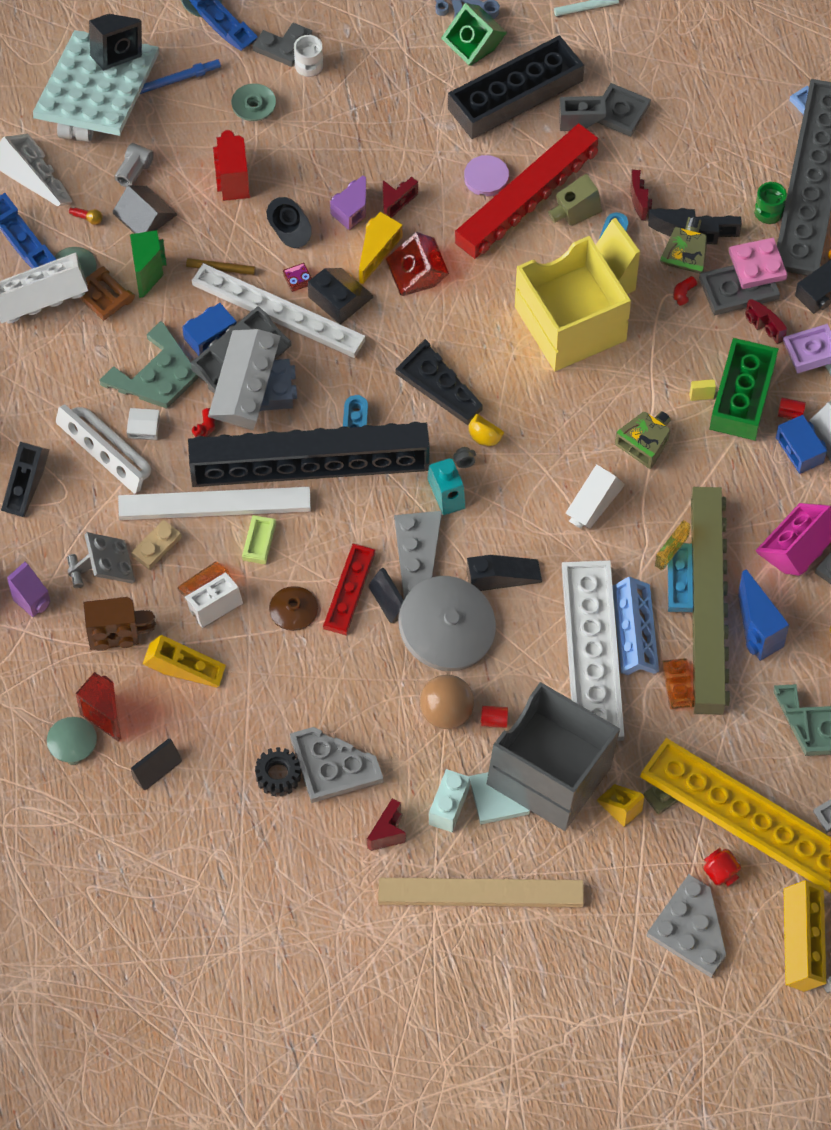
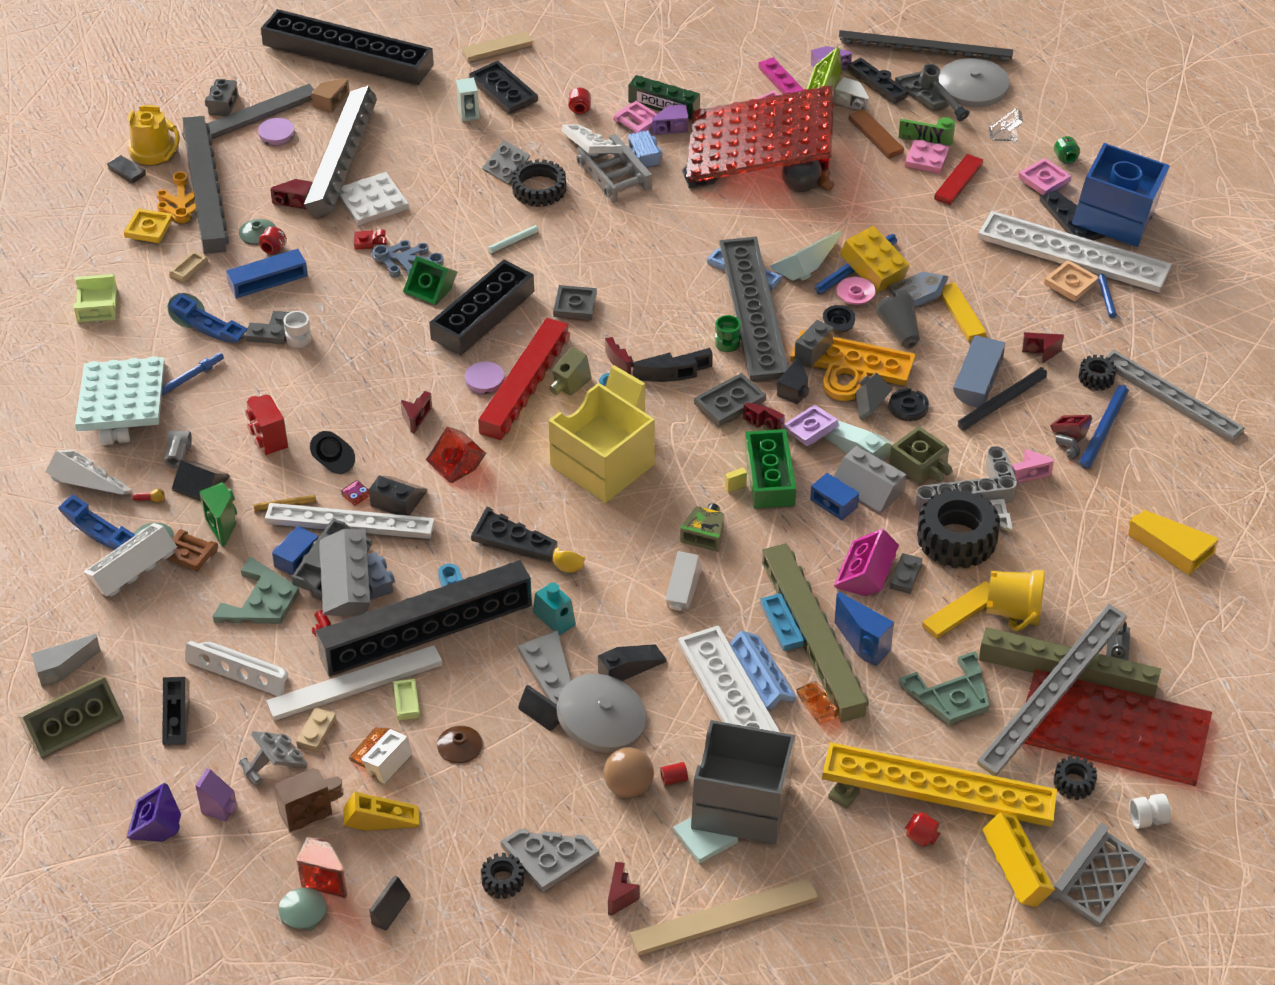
camera: 20 degrees left, 15 degrees down
(115, 40) = (127, 354): black slope -> none
(143, 424) = (266, 639): white piece -> none
(253, 95) = (263, 375): sand green dish -> none
(349, 589) = (502, 714): red tile -> none
(350, 204) = (379, 426): medium lavender slope -> none
(380, 238) = (416, 444): yellow slope -> none
(449, 800) = (665, 850): light aqua brick -> none
(464, 457) = (562, 582): dark grey plate -> none
(581, 110) = (546, 306): dark grey slope -> none
(622, 803) = (815, 807): yellow slope -> none
(672, 545) = (766, 596): clear yellow tile -> none
(682, 289) = (684, 414): red arm -> none
(686, 248) = (676, 382): olive torso -> none
(691, 927) = (918, 887): light grey plate -> none
(758, 263) = (738, 377): bright pink plate -> none
(791, 408) = (813, 473): red piece -> none

